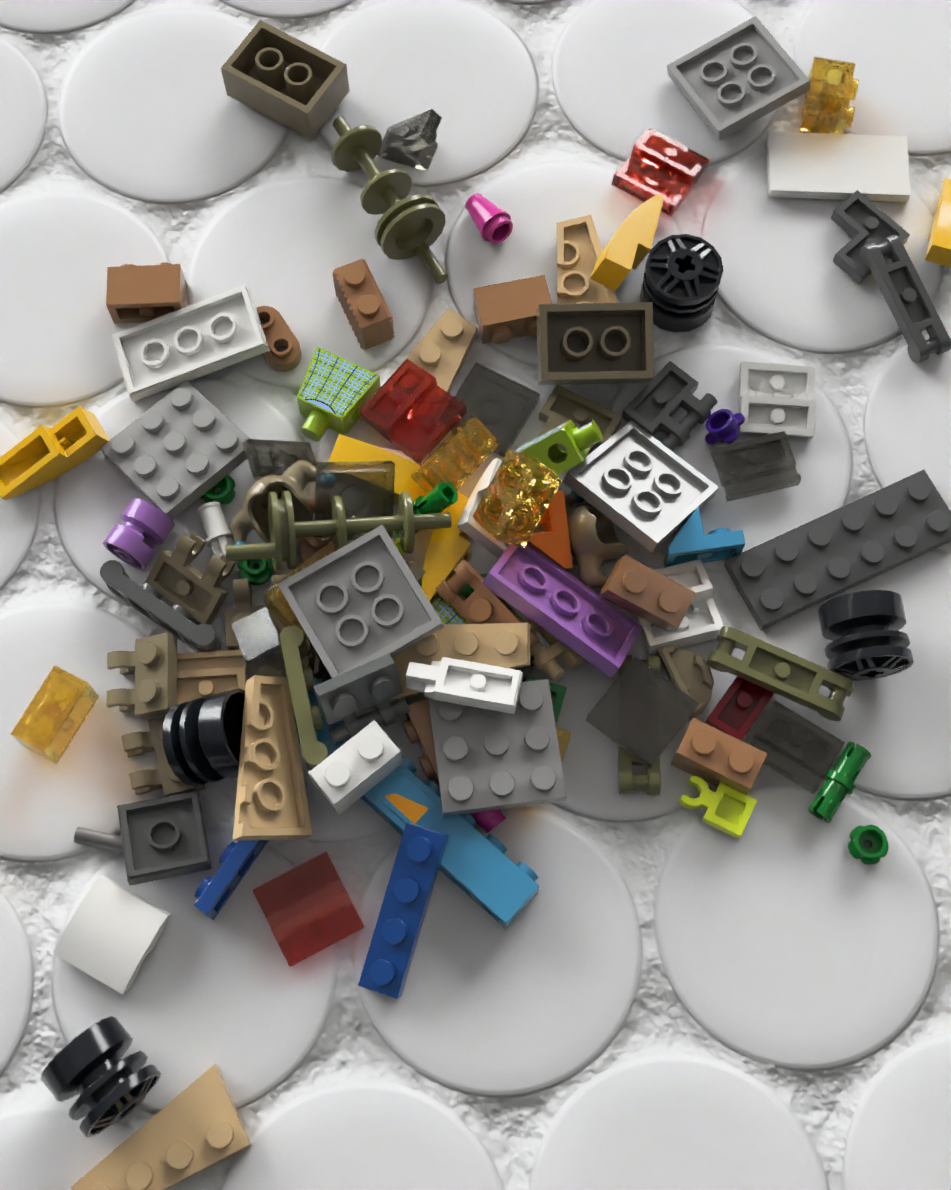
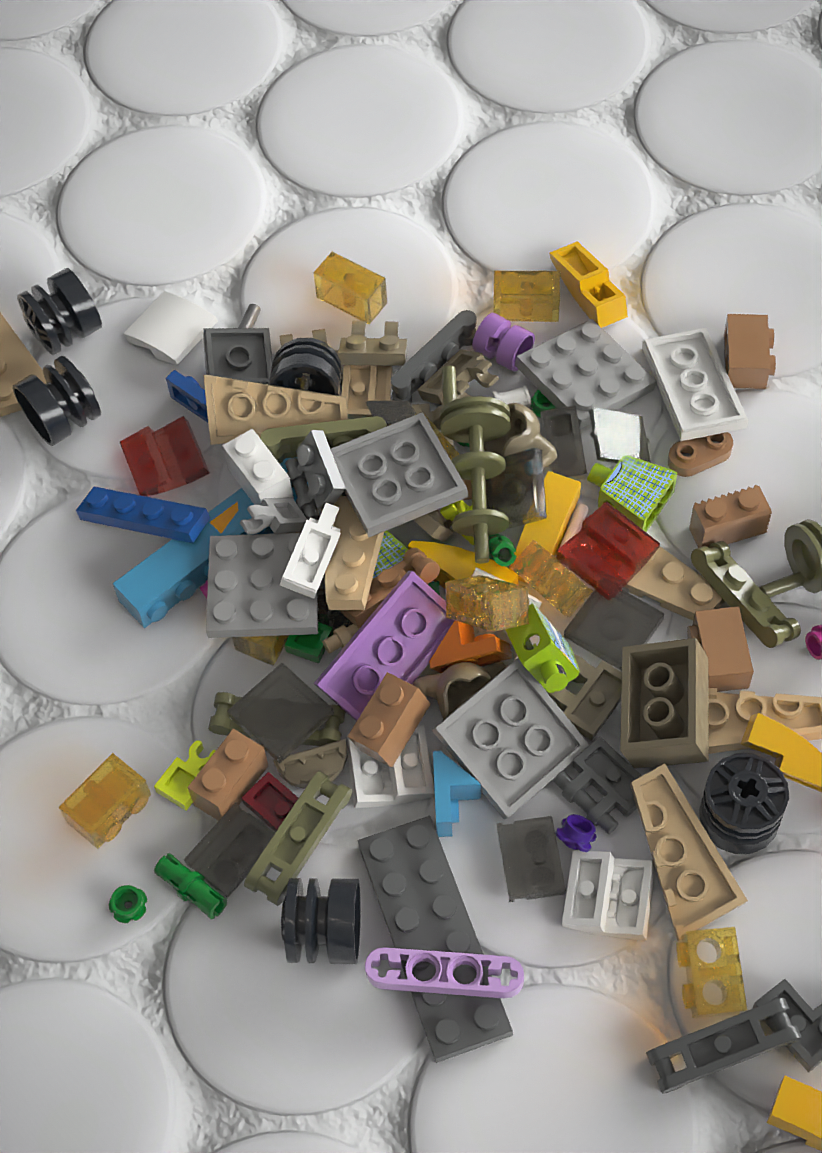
camera: 100 degrees right, 10 degrees down
(70, 515) = (527, 295): none -> clear yellow brick
(240, 1040) = (62, 397): none -> black wheel
(266, 409) = (618, 435): none -> clear smoke piece
(413, 736) = (278, 513): none -> light grey plate
(450, 291) = (740, 590): none -> olive plate
(736, 333) = (687, 863): none -> tan wing
(765, 885) = (105, 801): none -> clear yellow brick
(843, 306) = (723, 972): none -> clear yellow brick
(891, 524) = (443, 980): none -> lavender beam

